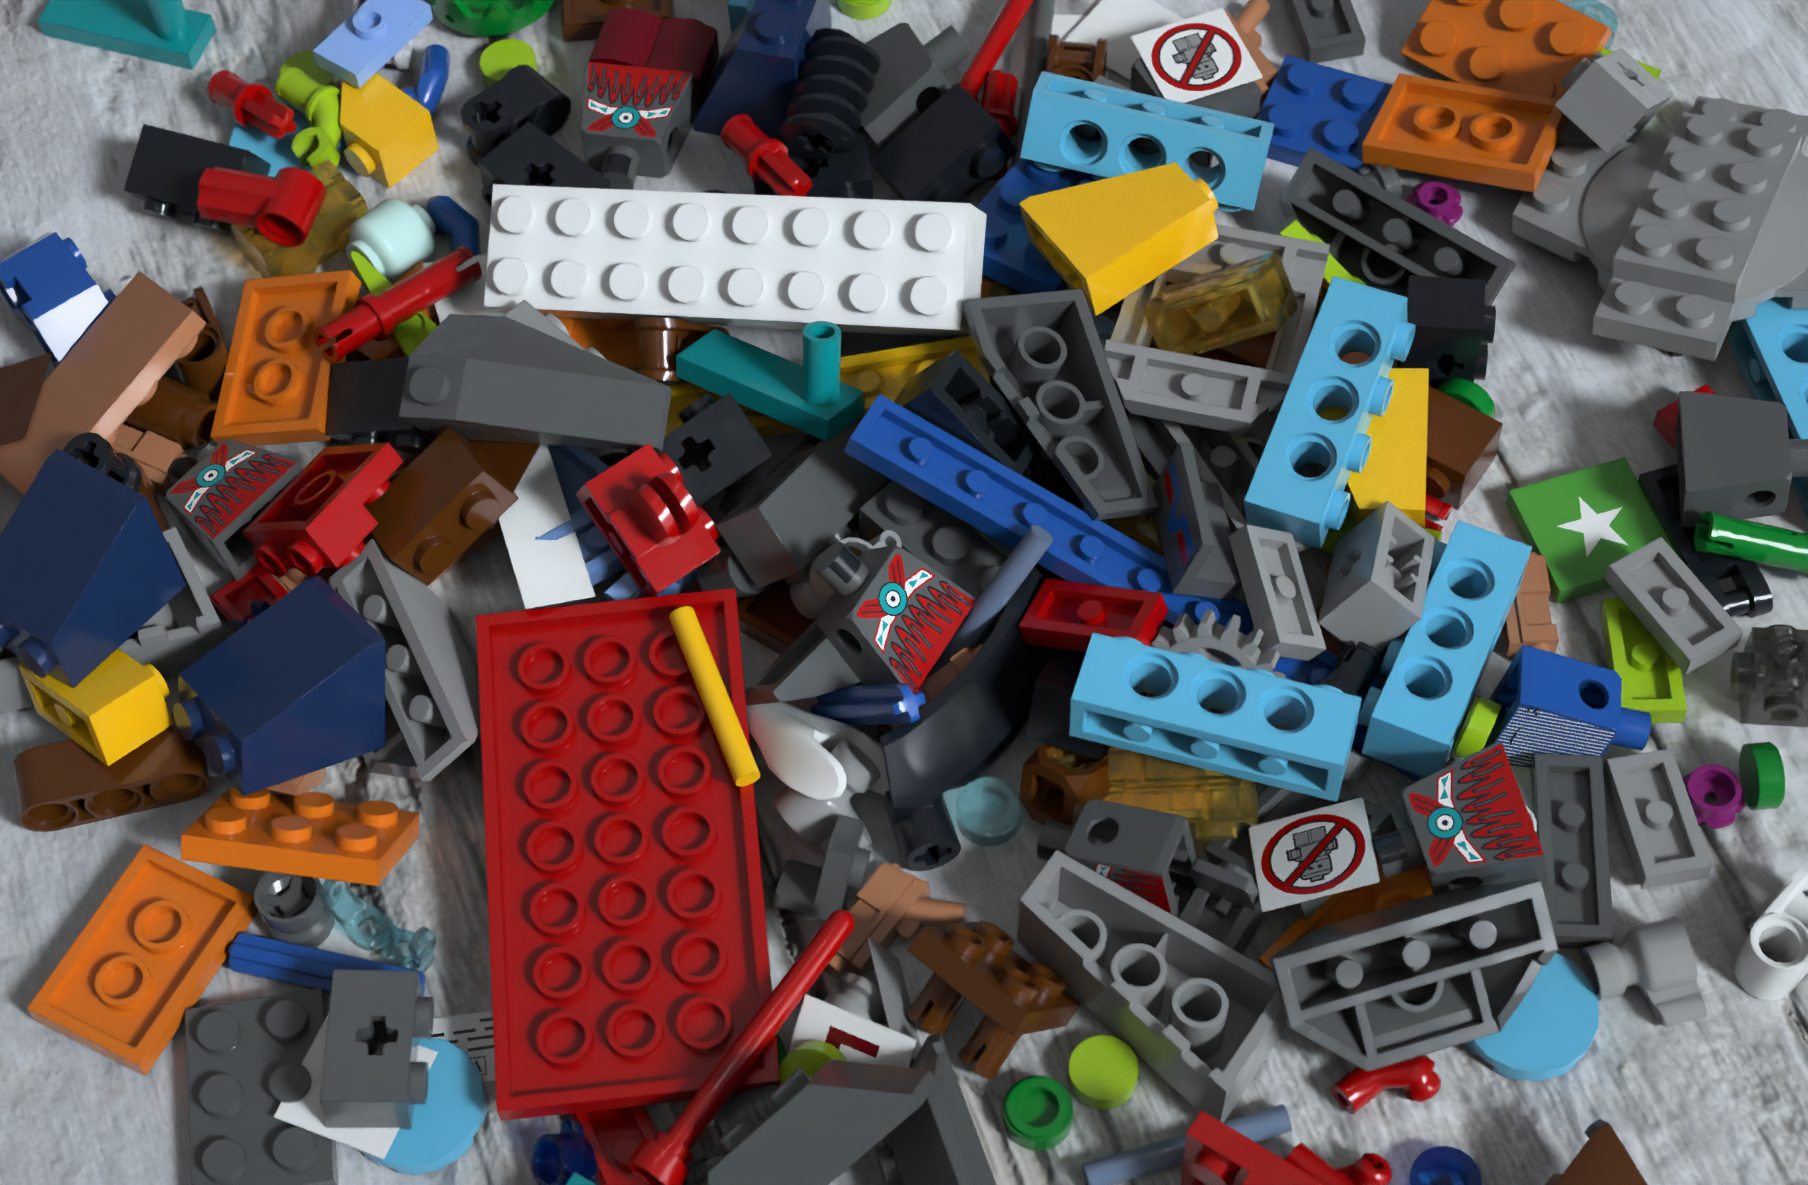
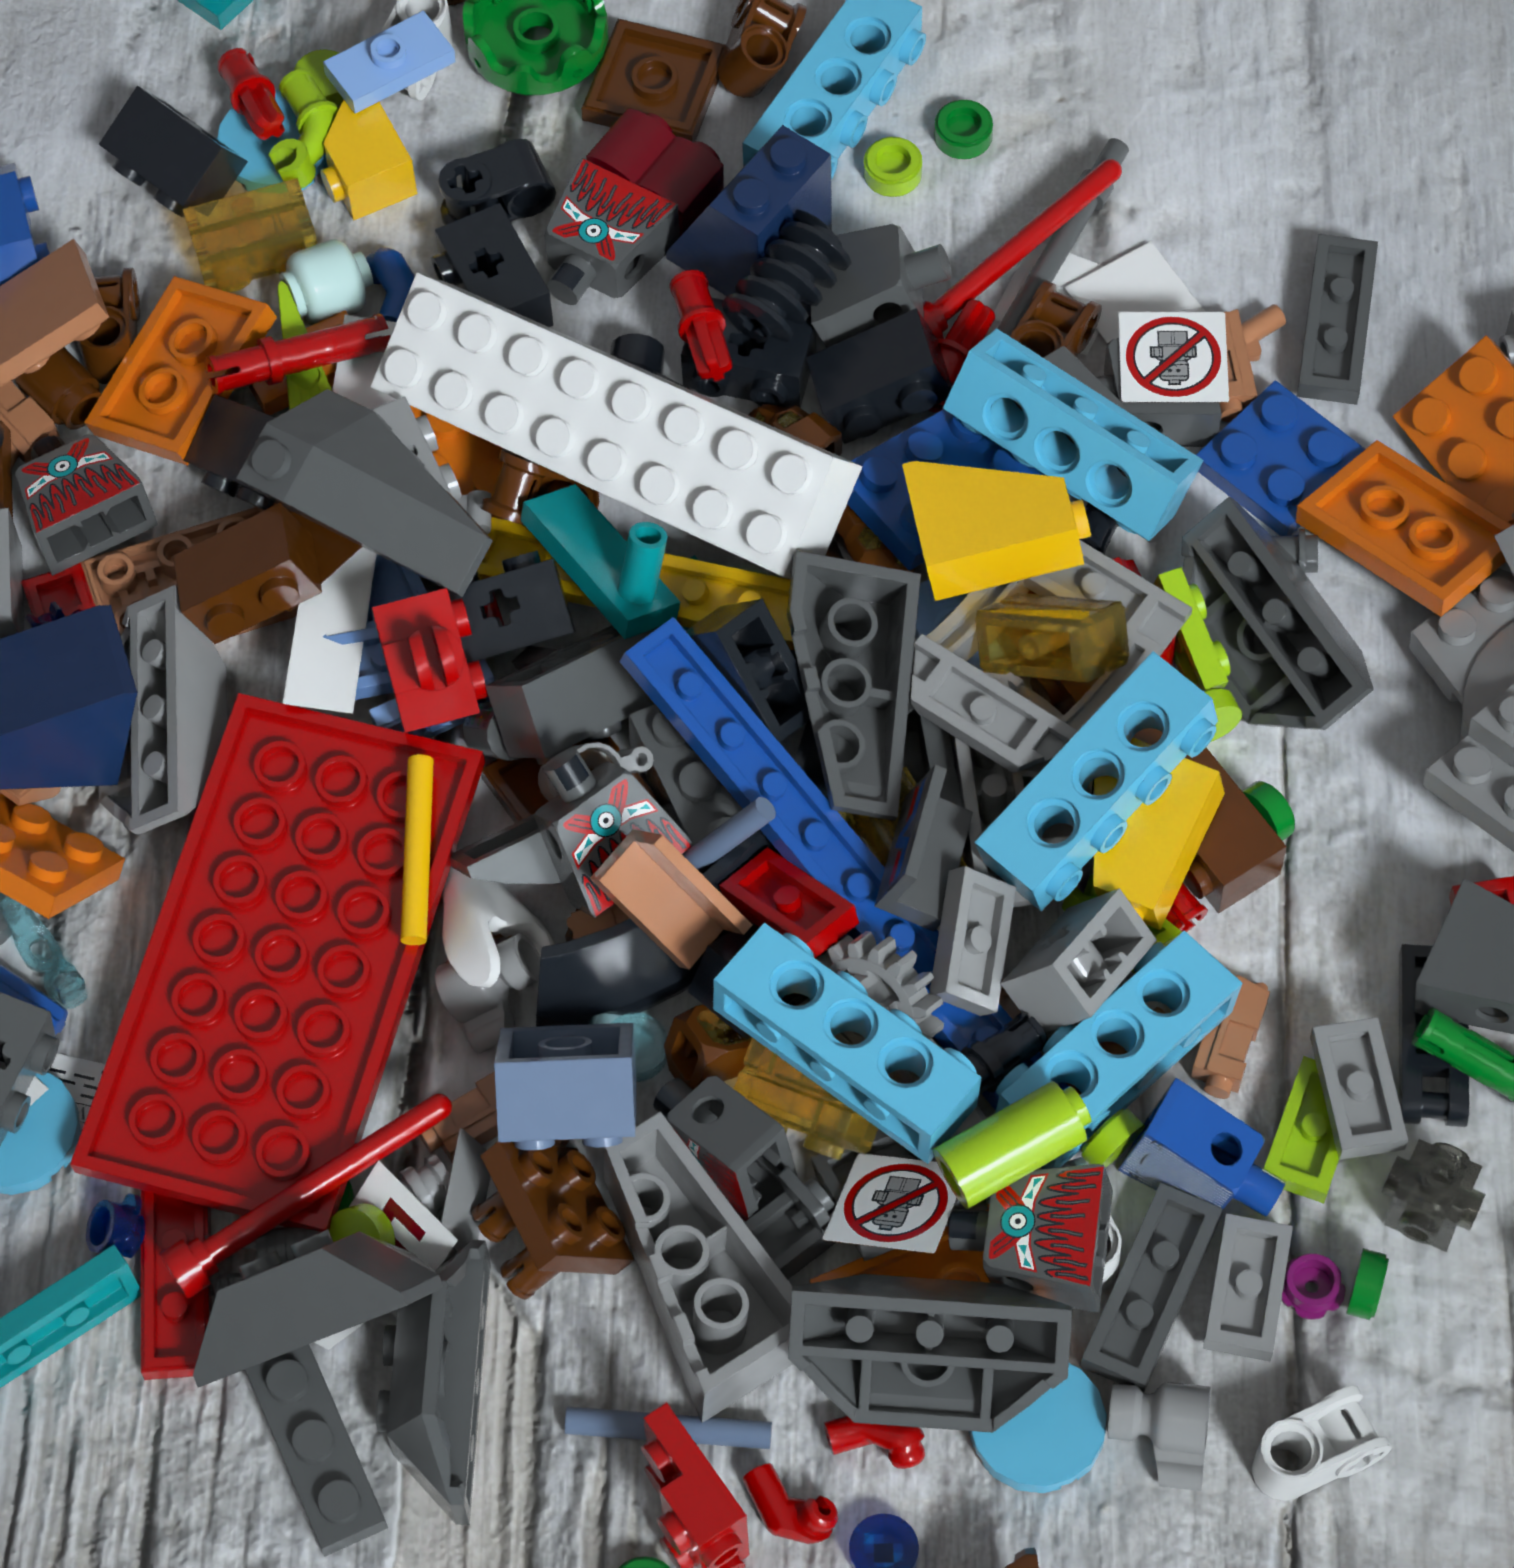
camera: 20 degrees right, 5 degrees up
(277, 206) = (224, 213): red piece -> none
(323, 510) = (133, 545): red plate -> none
(432, 77) = (434, 123): blue arm -> none
(504, 56) = (516, 121): lime tile -> none
(819, 891) = (448, 1062): dark grey bracket -> none
(871, 704) = (556, 911): blue axle -> none
(961, 855) = (566, 1085): none -> sand blue brick
(984, 644) = (667, 896): none -> nougat panel
(1037, 1112) = (551, 1344): green tile -> none
(1103, 1072) = (625, 1330): lime tile -> none
(1411, 752) = (1013, 1143): none -> lime brick
(1443, 196) = (1347, 607): magenta plate -> none
(1449, 328) = (1271, 735): black brick -> none
(1585, 524) = (1332, 974): bright green tile -> none

